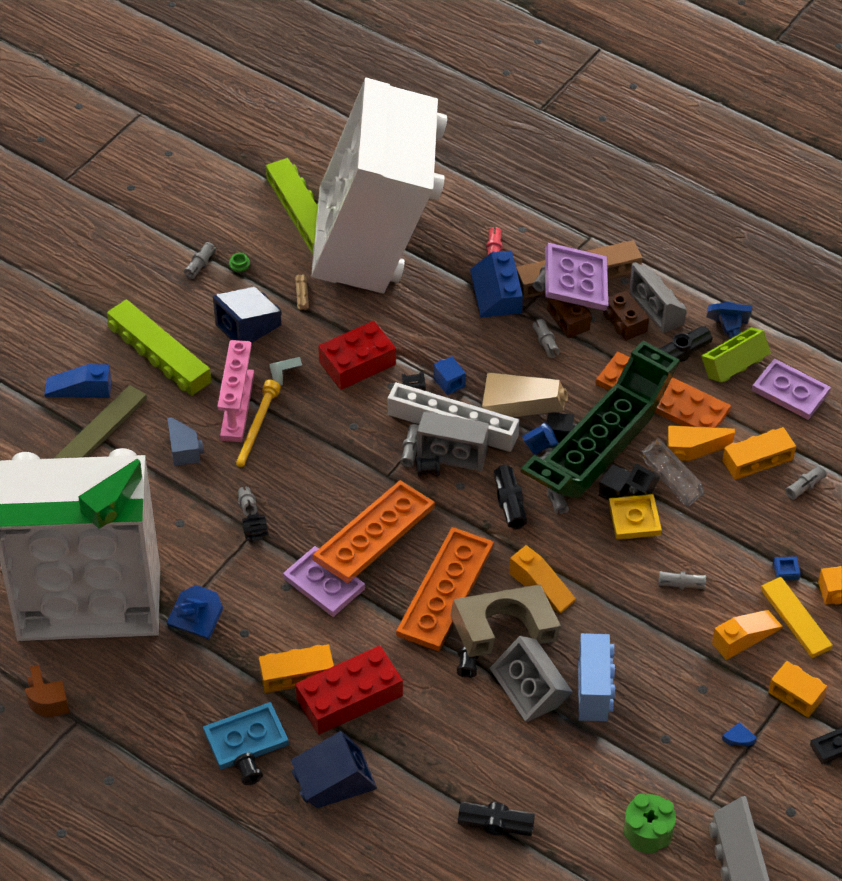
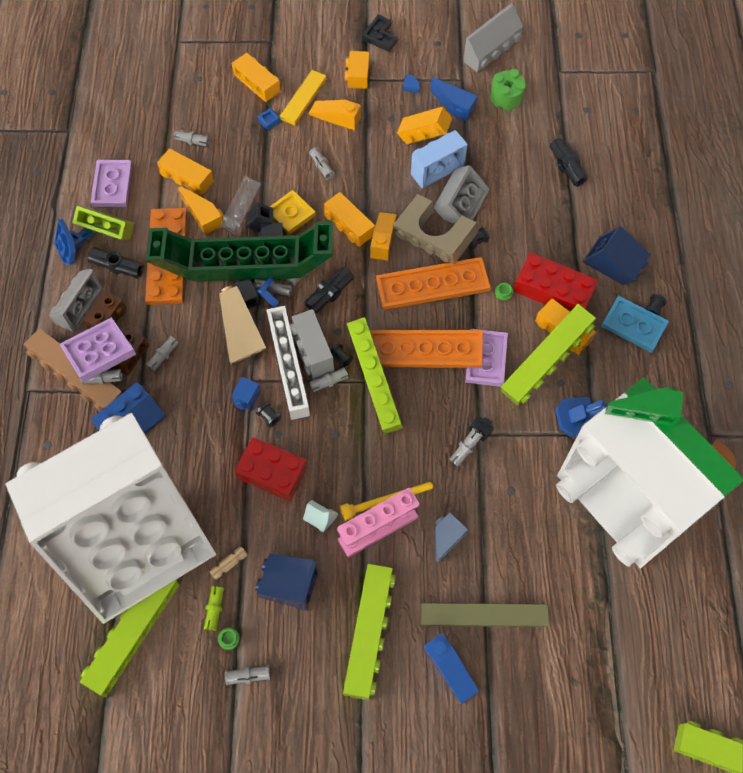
camera: 125 degrees left, 15 degrees up
(272, 264) = (214, 608): none -> lime pin
(275, 619) = (548, 355): none -> lime brick
(378, 469) = (374, 376): none -> lime brick
(386, 642) = (503, 291): none -> bright green plate
(585, 559) = (349, 219): none -> light orange brick
(648, 684) = (424, 125): none -> light orange brick
(676, 760) = (457, 101): none -> blue slope

